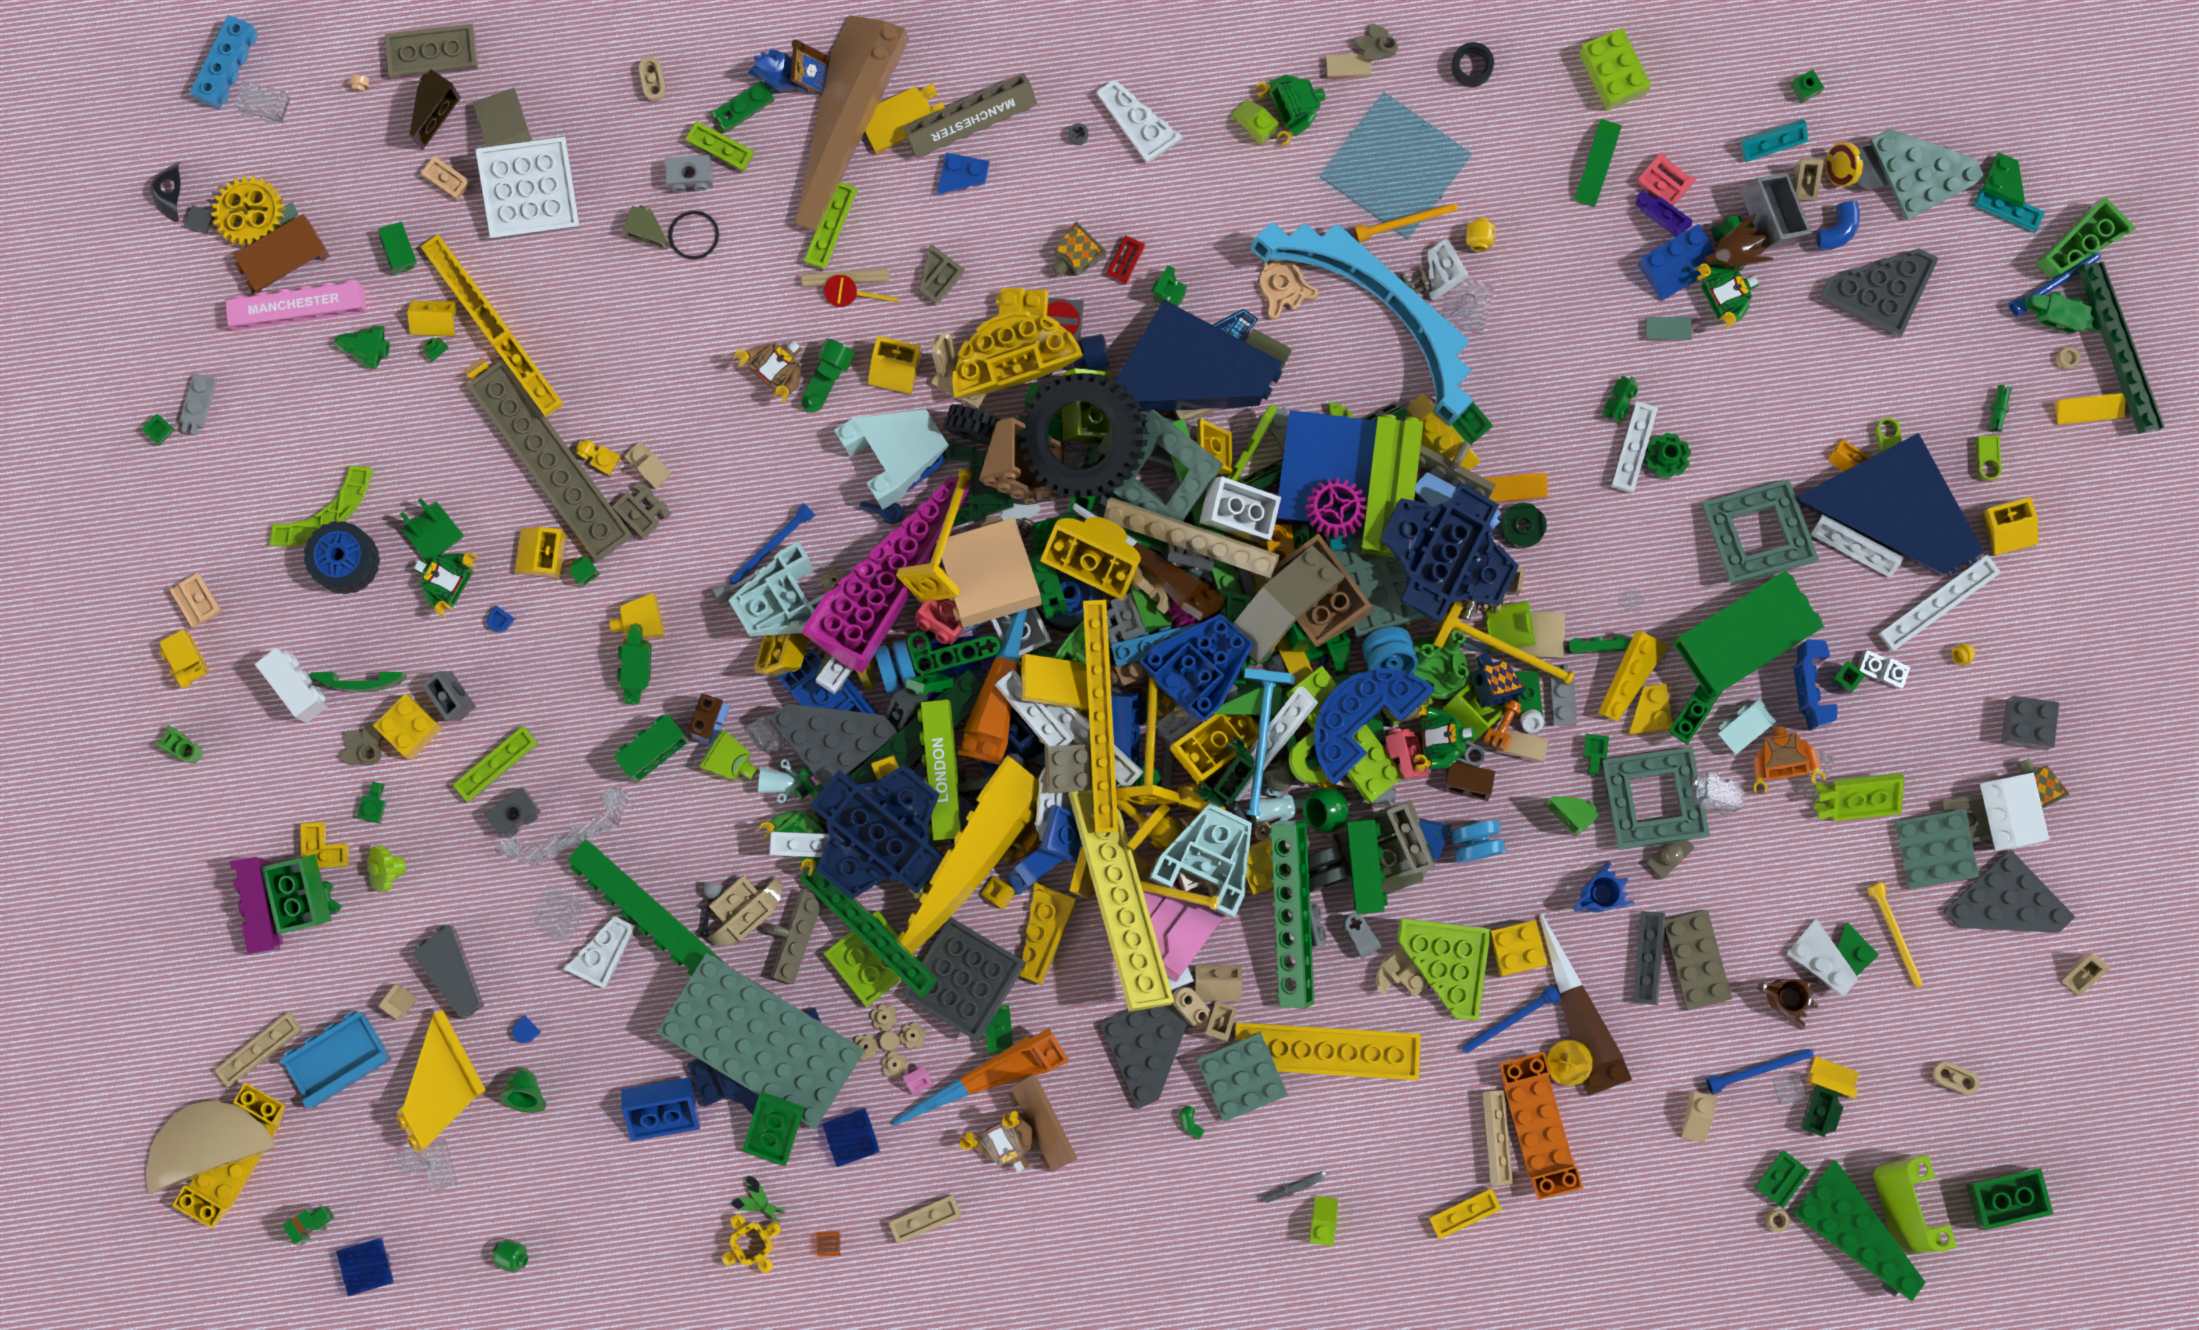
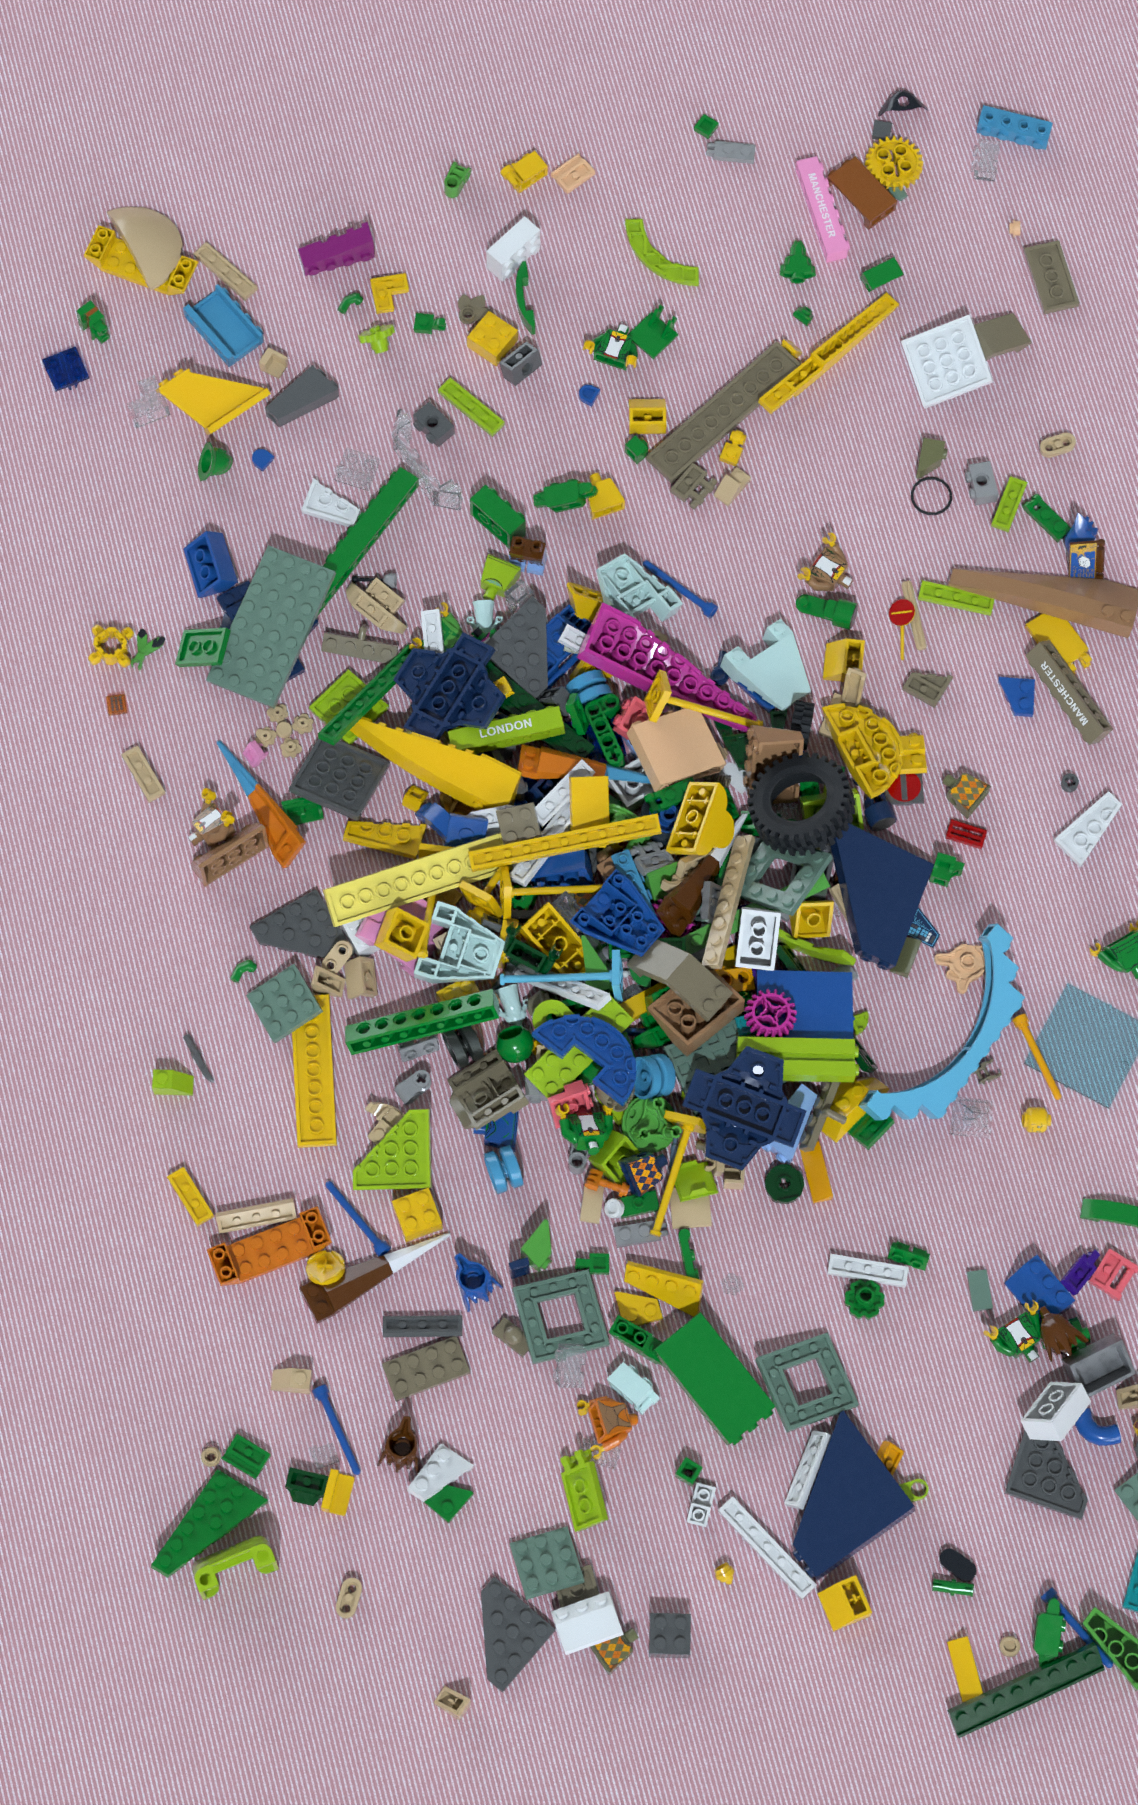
camera: 80 degrees right, 10 degrees down
(296, 894) = (348, 276): green brick -> none
(358, 562) = (621, 270): wheel -> none
(432, 106) = (1001, 281): dark brown slope -> none
(432, 317) = (829, 309): yellow panel -> none
(445, 178) = (946, 303): light nougat plate -> none
(510, 1255) = (84, 471): green head -> none
(723, 593) = (635, 555): hinge -> none
(851, 1137) = (203, 710): clear blue piece -> none
(1178, 818) = (491, 922): none -> dark grey plate
(1190, 924) = (401, 934): none -> yellow brick
(1256, 121) = (1105, 924): lime slope -> none
(1365, 866) = (470, 1077): green brick -> none
(1445, 269) = (1001, 1093): white wing -> none
(1469, 781) = (555, 1161): reddish brown hinge -> none
(1596, 837) = (519, 1268): none -> dark blue plate
(1805, 673) = (685, 1431): blue plate -> none
(1826, 263) = (1055, 1411): none -> white brick
(1878, 892) = (502, 1517): yellow piece -> none
(1975, 399) = (957, 1565): none -> black tile
(1988, 451) = (912, 1581): lime piece -> none
(2009, 1199) = (248, 1650): green brick -> none

